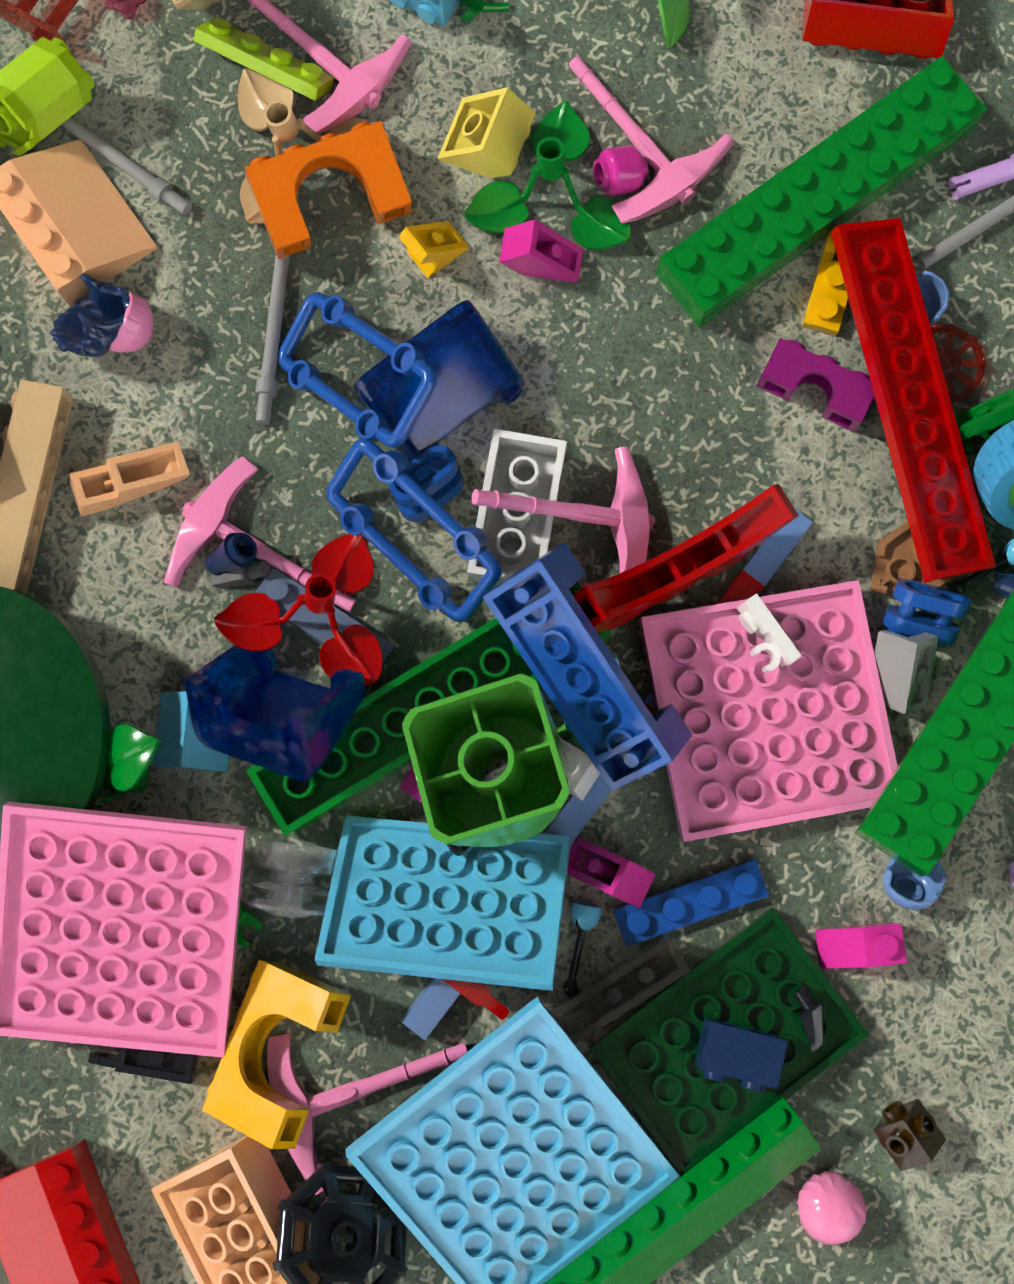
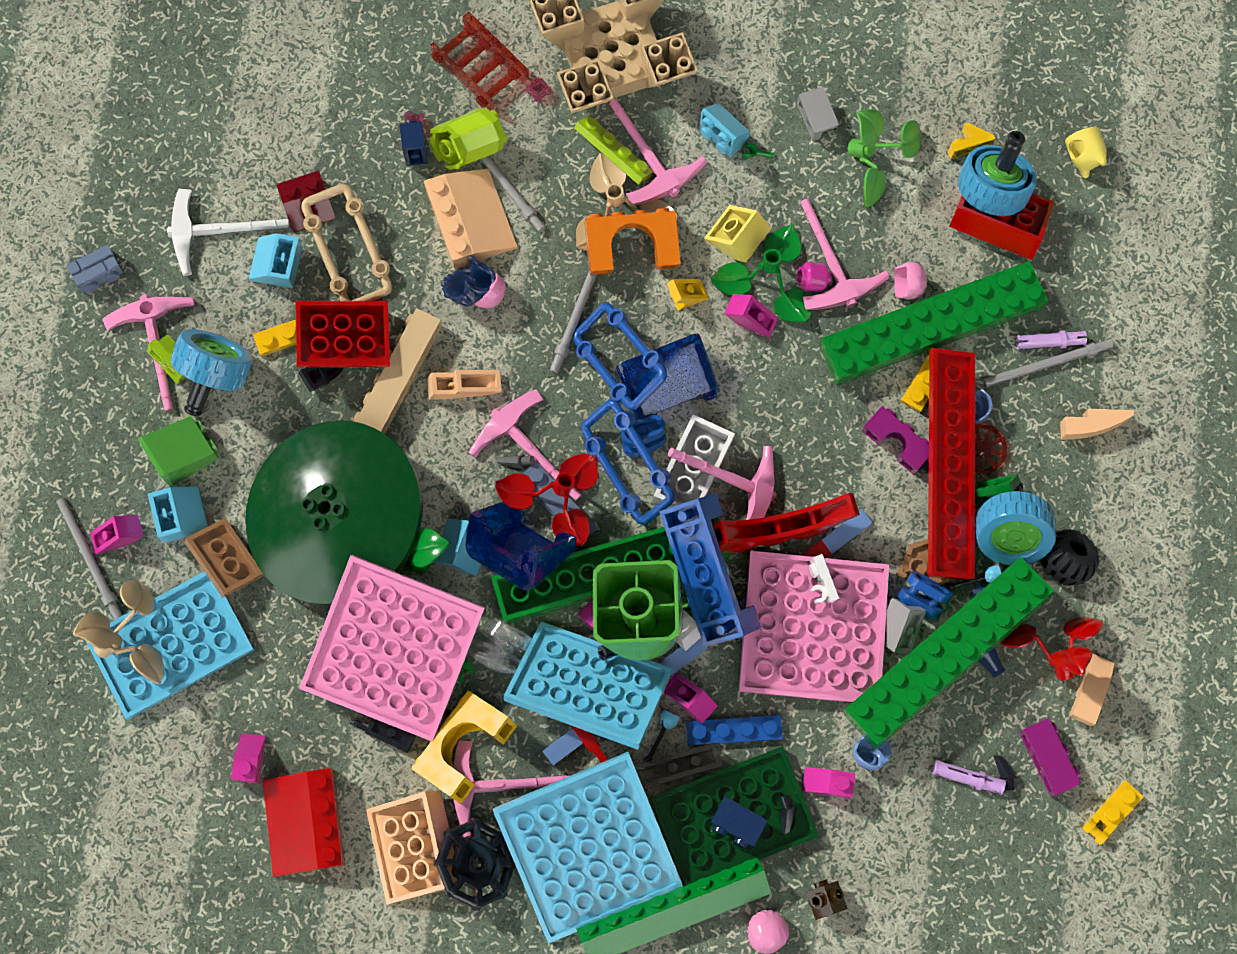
camera: 10 degrees right, 5 degrees down
(233, 553) = (515, 447): dark blue cone -> none
(768, 137) = (910, 281): none -> bright pink hair

